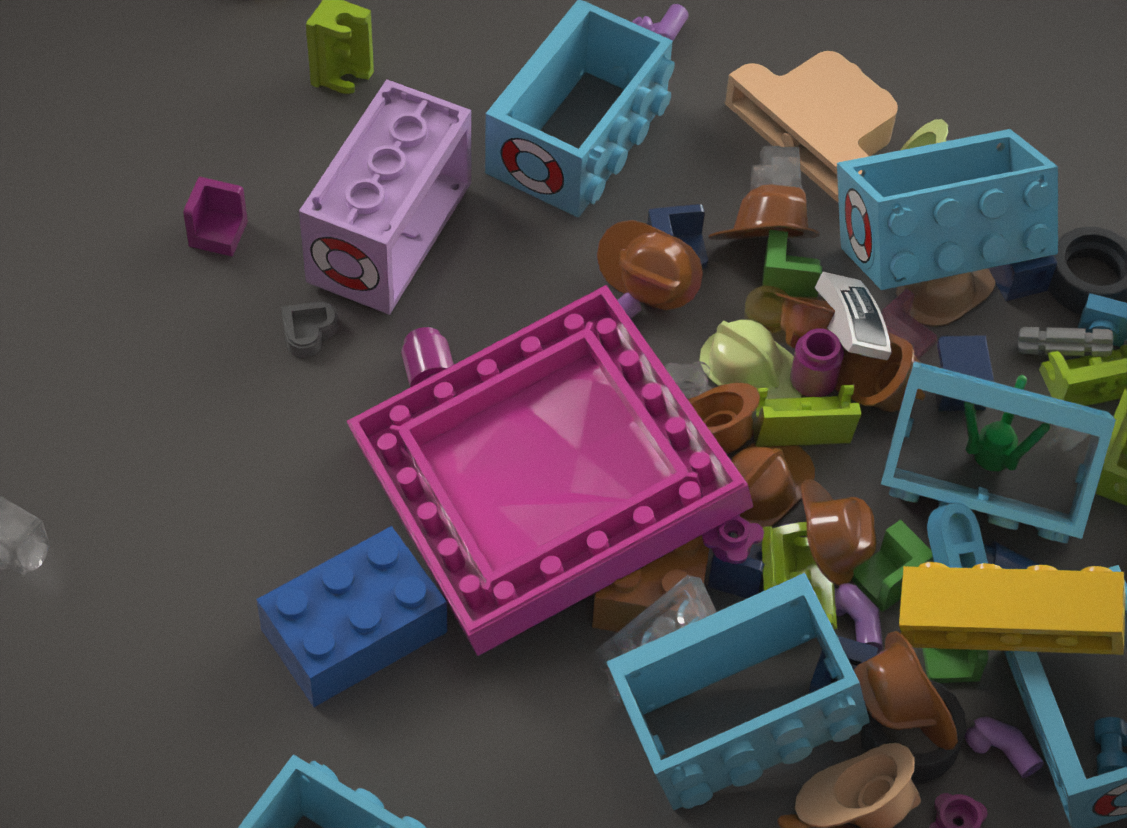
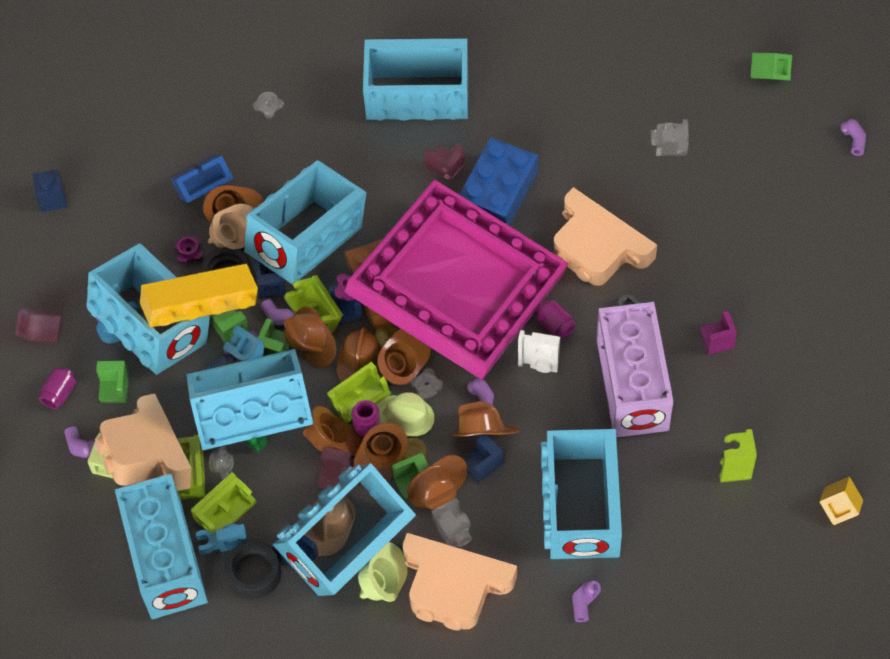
camera: 155 degrees right, 5 degrees up
(273, 440) = (598, 241): none -> light nougat brick
(403, 724) = (445, 162): none -> clear pink panel
(492, 301) = (539, 351): none -> white plate
(674, 610) = (355, 232): clear plate -> none
(856, 316) = (358, 441): slope -> none
(902, 695) = (231, 254): dark orange piece -> none
(966, 356) = (290, 460): dark blue panel -> none
(1066, 341) = (248, 512): light grey axle -> none

